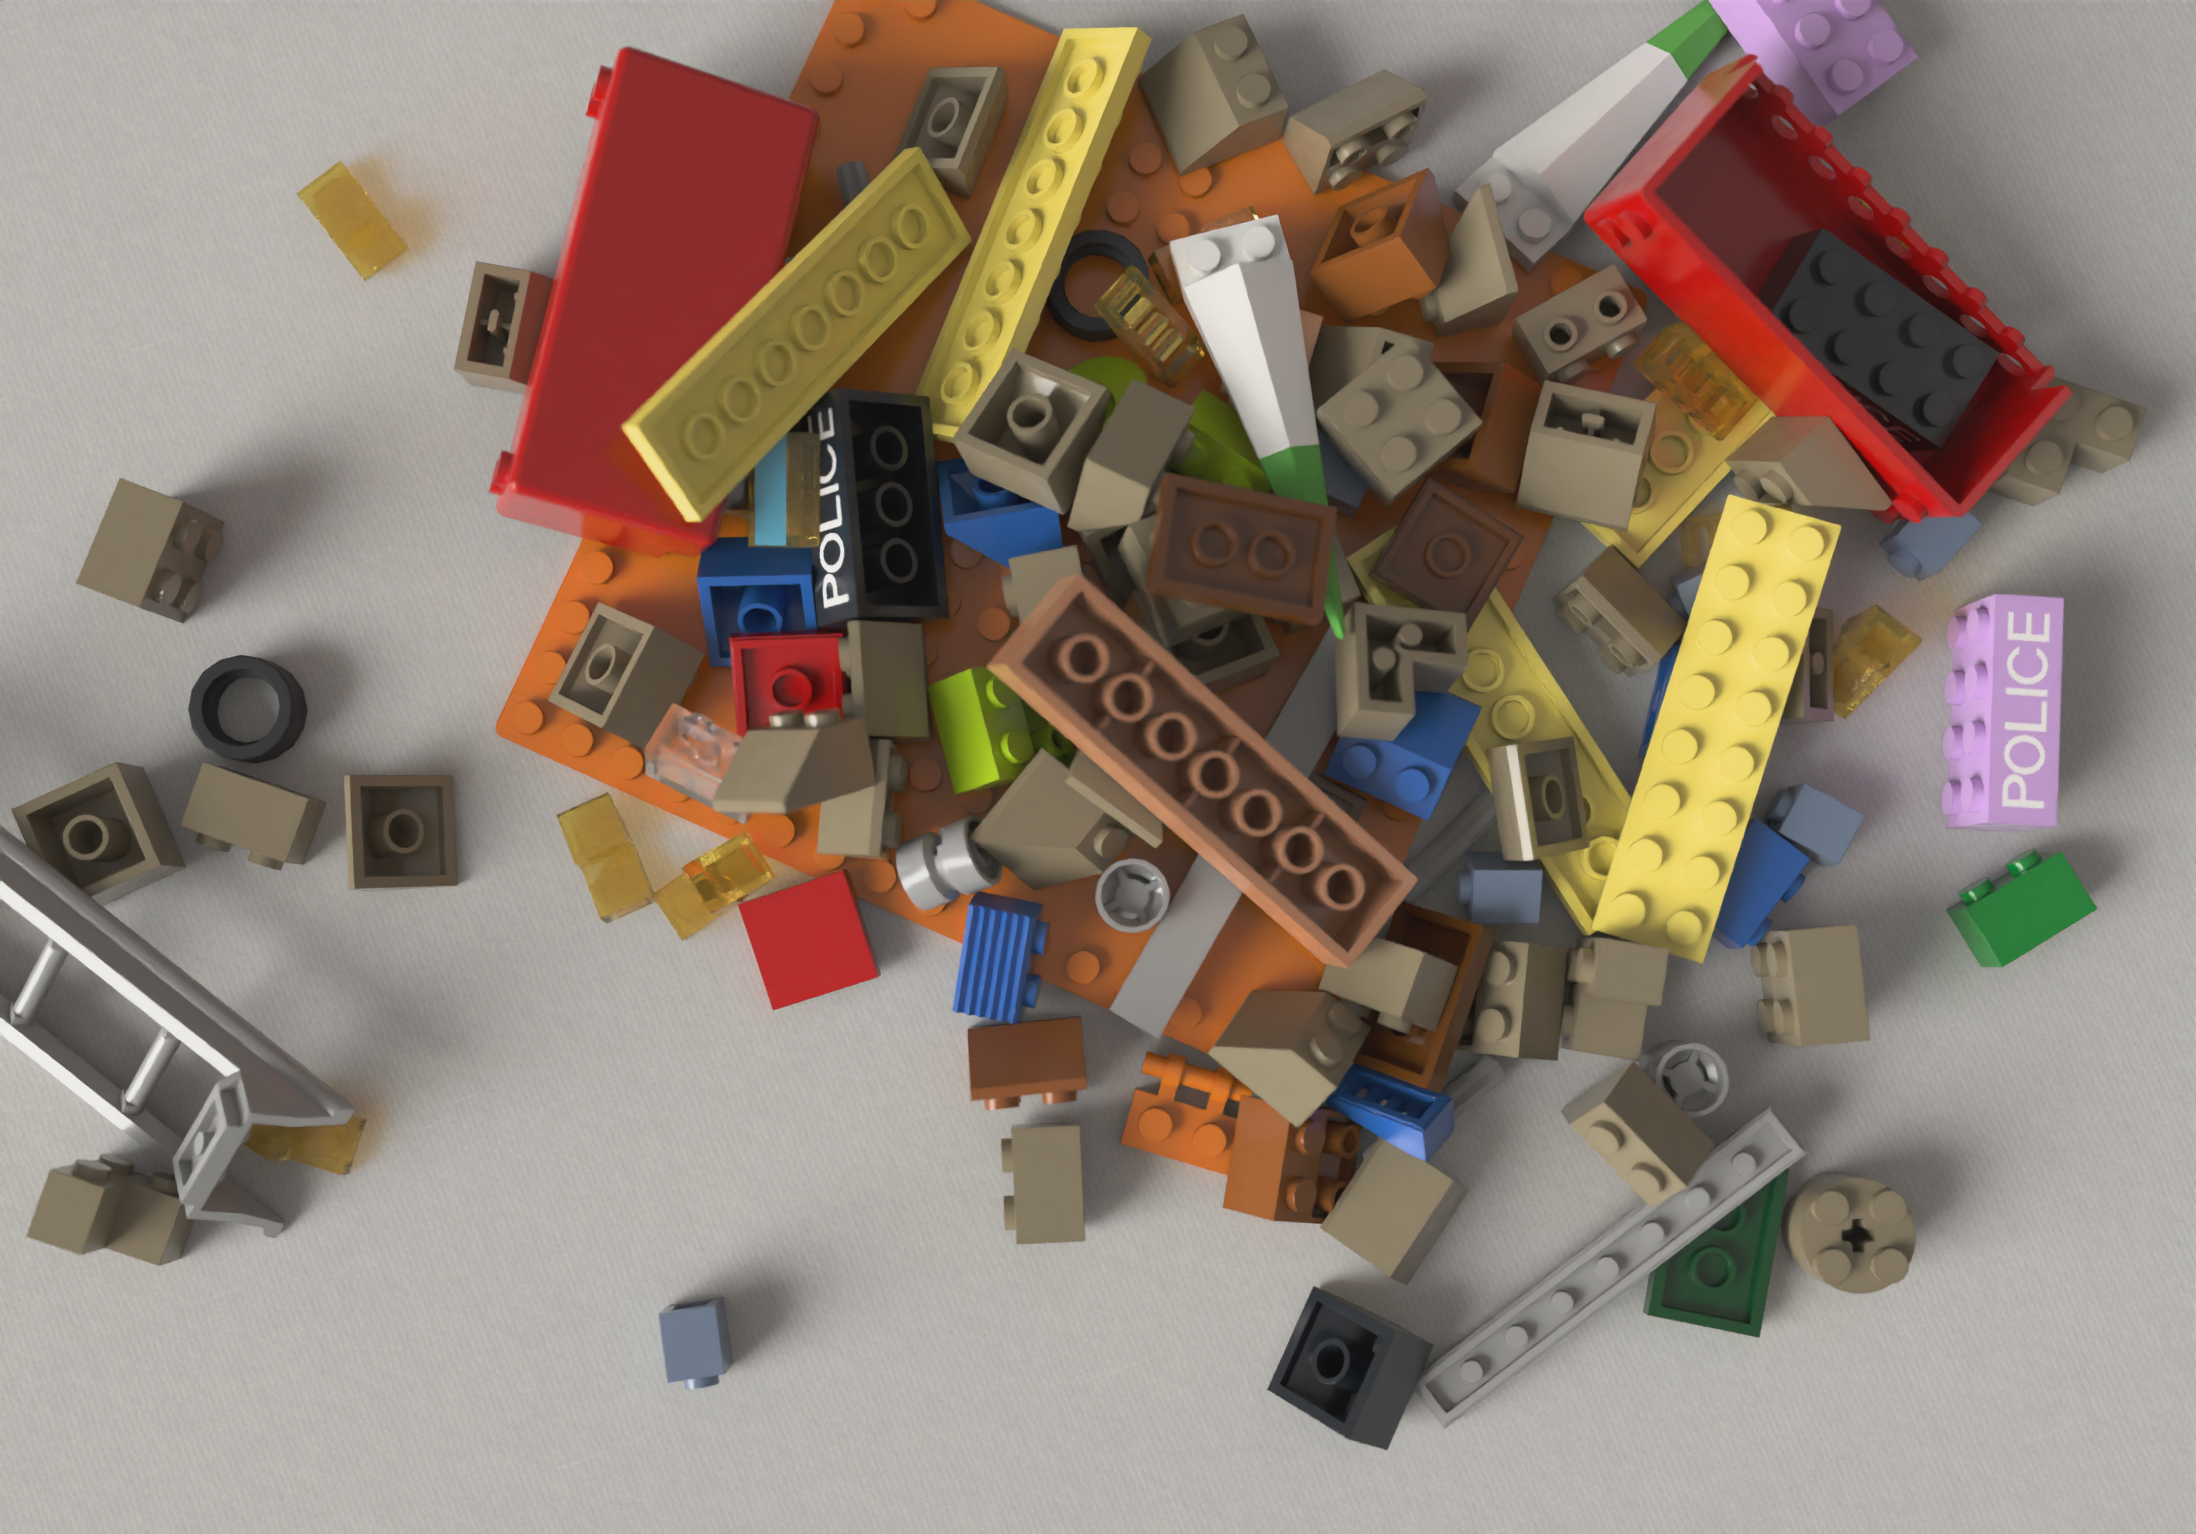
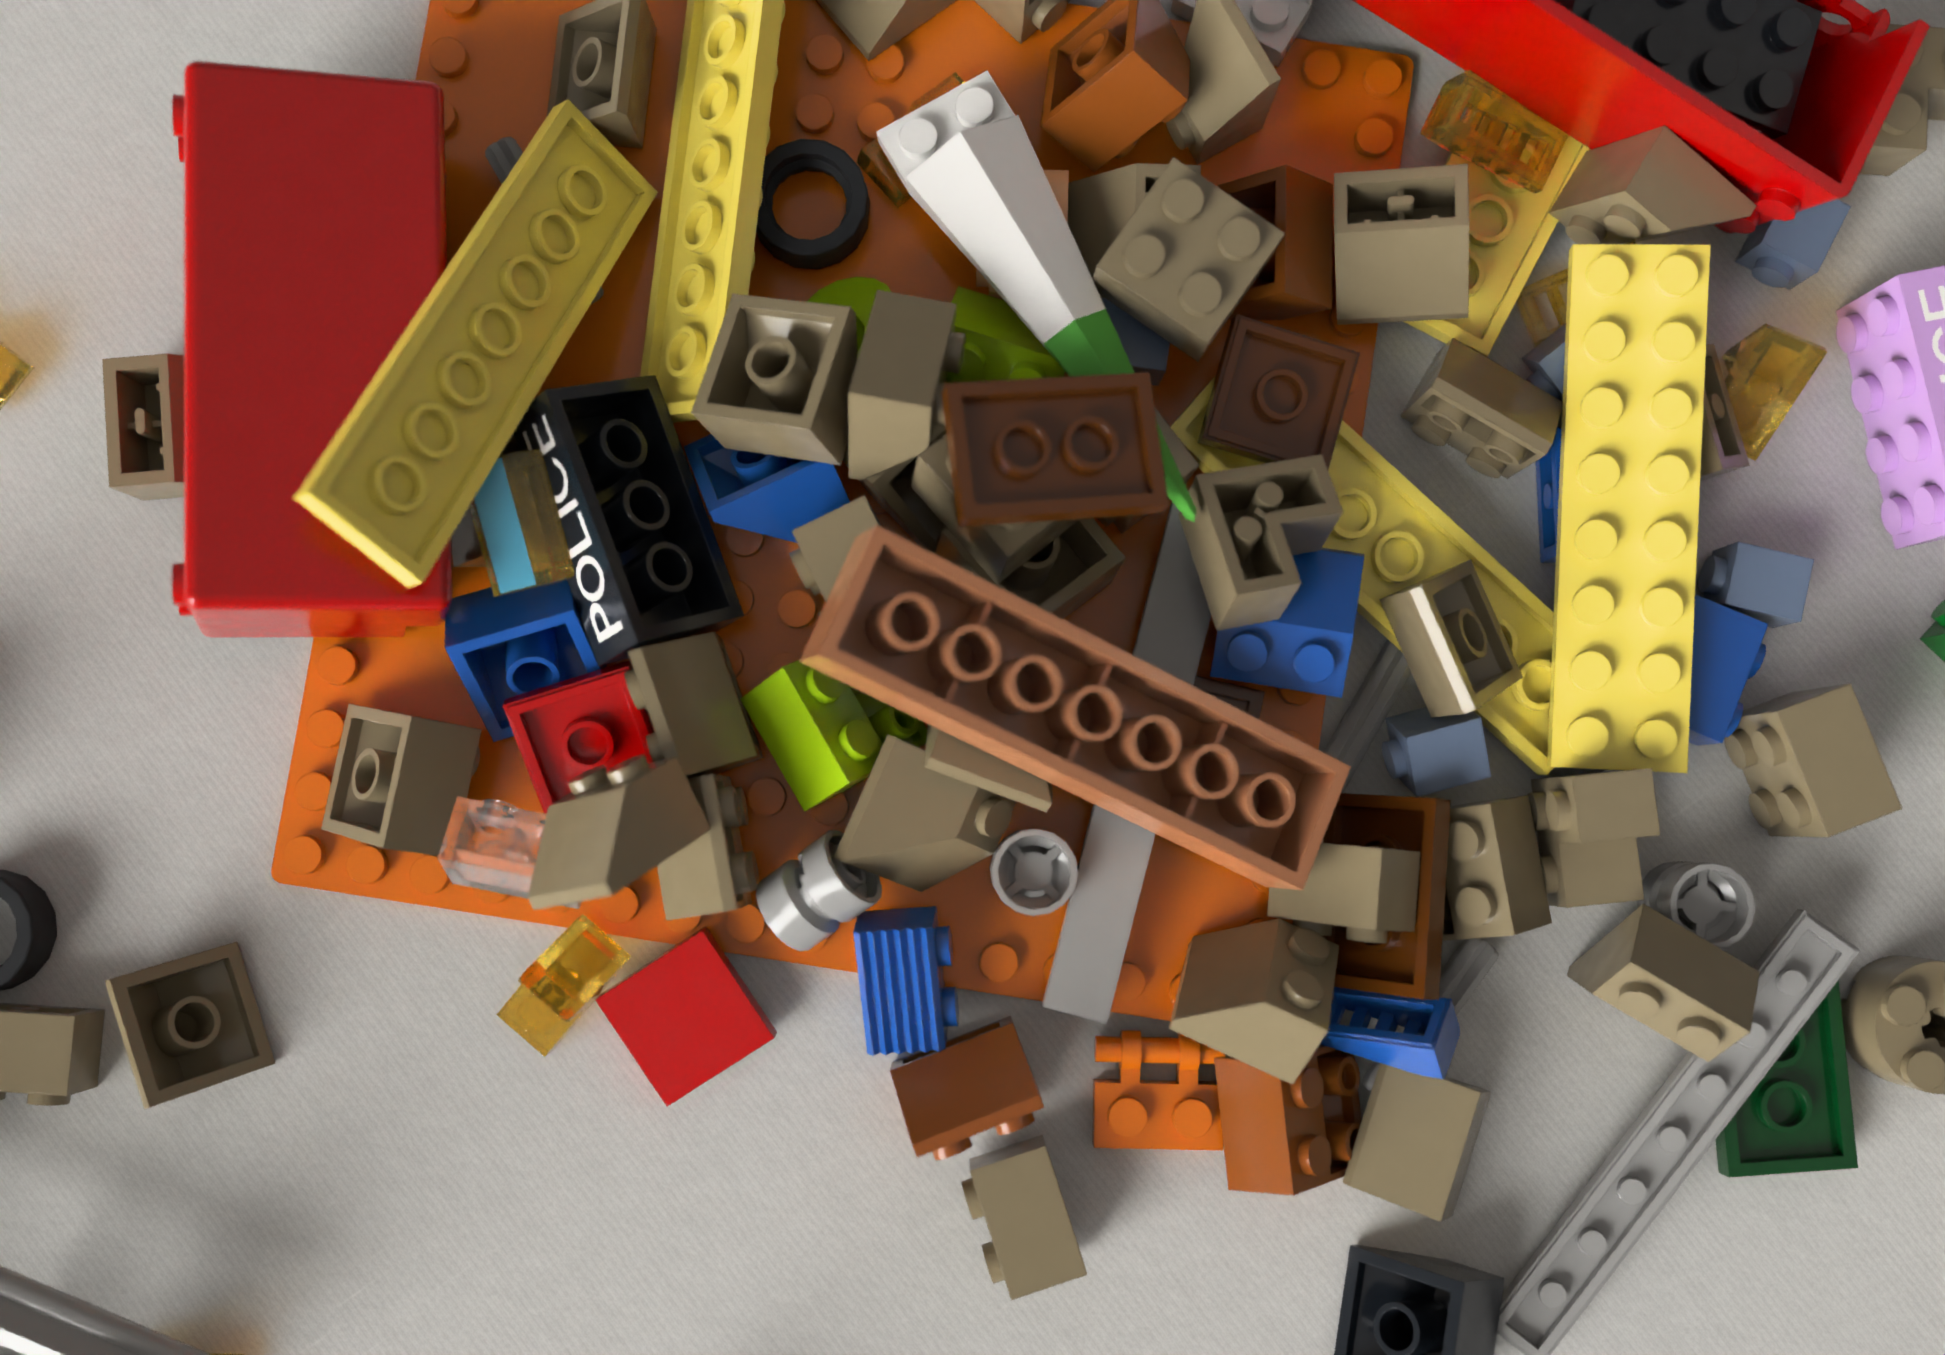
camera: 20 degrees left, 0 degrees up
(607, 857) = (436, 985): clear yellow slope -> none
(1175, 350) = (916, 250): clear yellow slope -> none
(1580, 328) = (1353, 108): dark tan brick -> none

